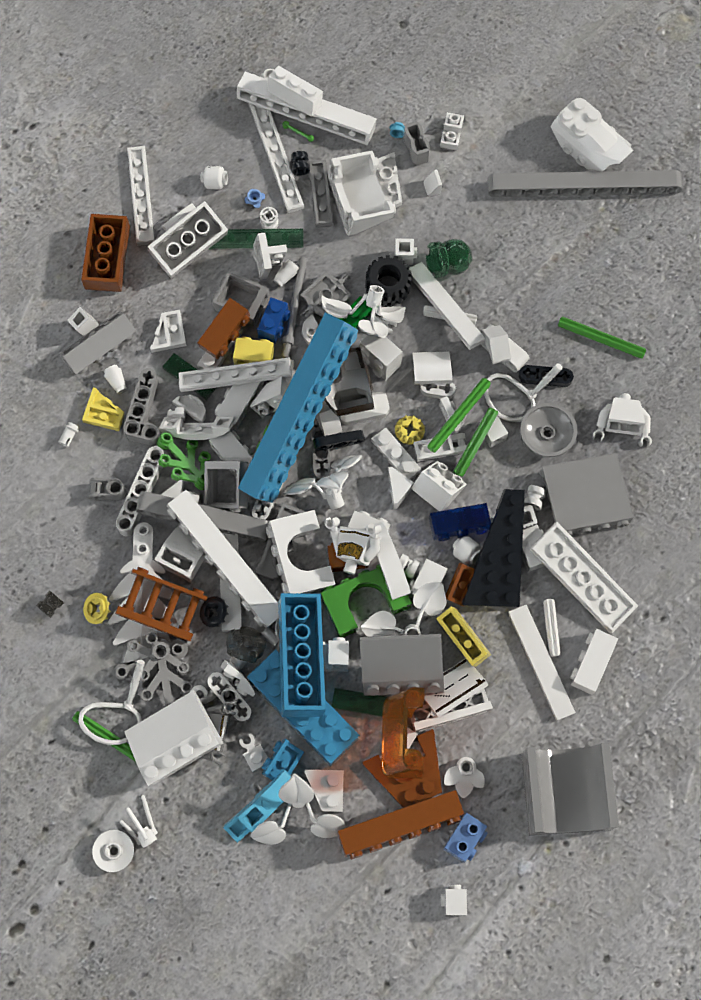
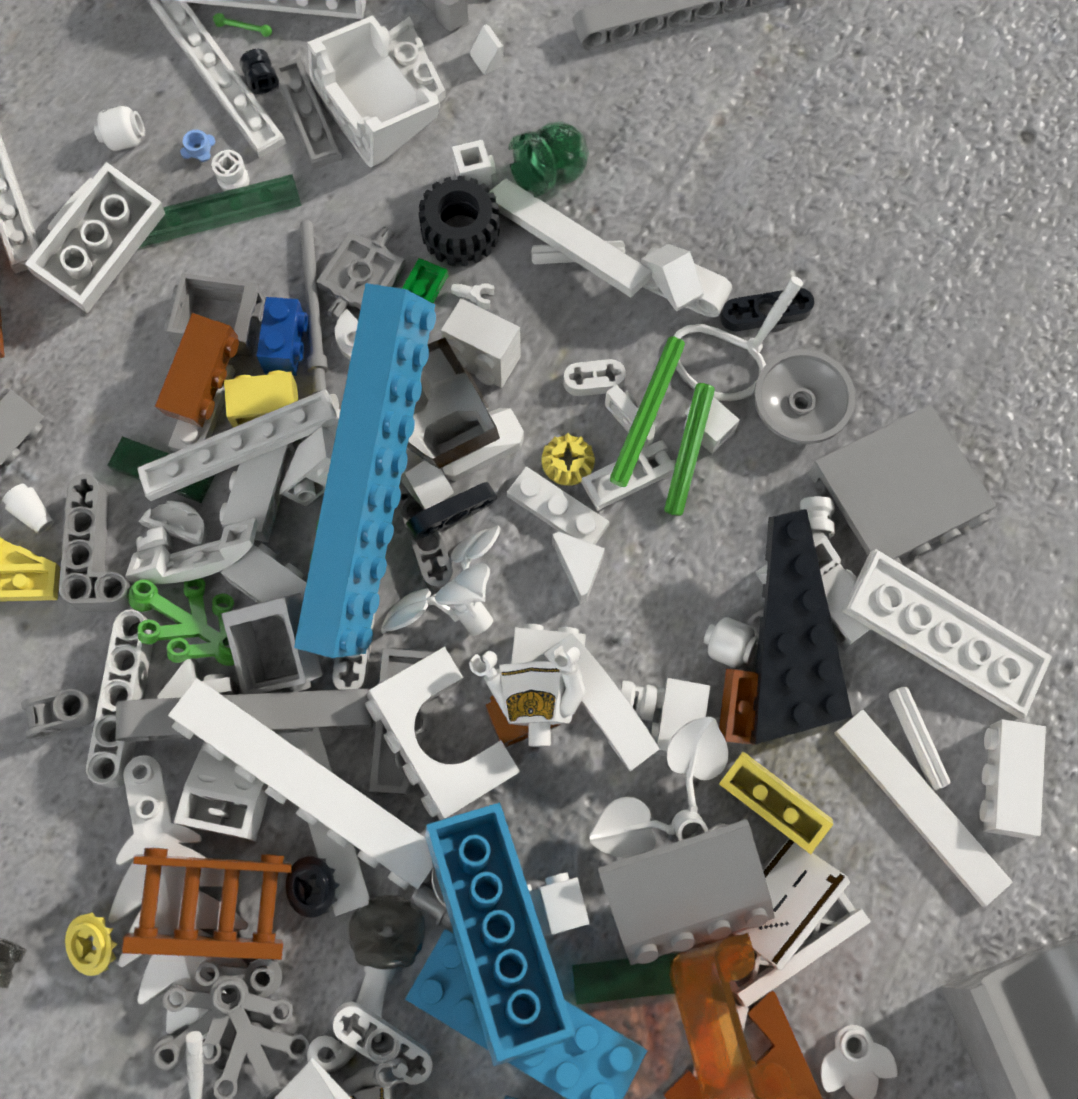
camera: 15 degrees left, 0 degrees up
(169, 332) = (105, 403): white wing -> none
(240, 682) = (400, 1013): white slope -> none
(267, 256) = (242, 228): white bracket -> none
(285, 273) = (282, 252): white cone -> none
(336, 599) = (530, 798): bright green arch -> none
(390, 313) = (445, 254): white plant -> none
(432, 368) = (575, 345): white slope -> none
(438, 485) = (647, 542): white slope -> none
(460, 522) = (703, 595): clear blue brick -> none
(602, 337) = (837, 224): bright green axle -> none
(624, 417) = (922, 342): white torso -> none

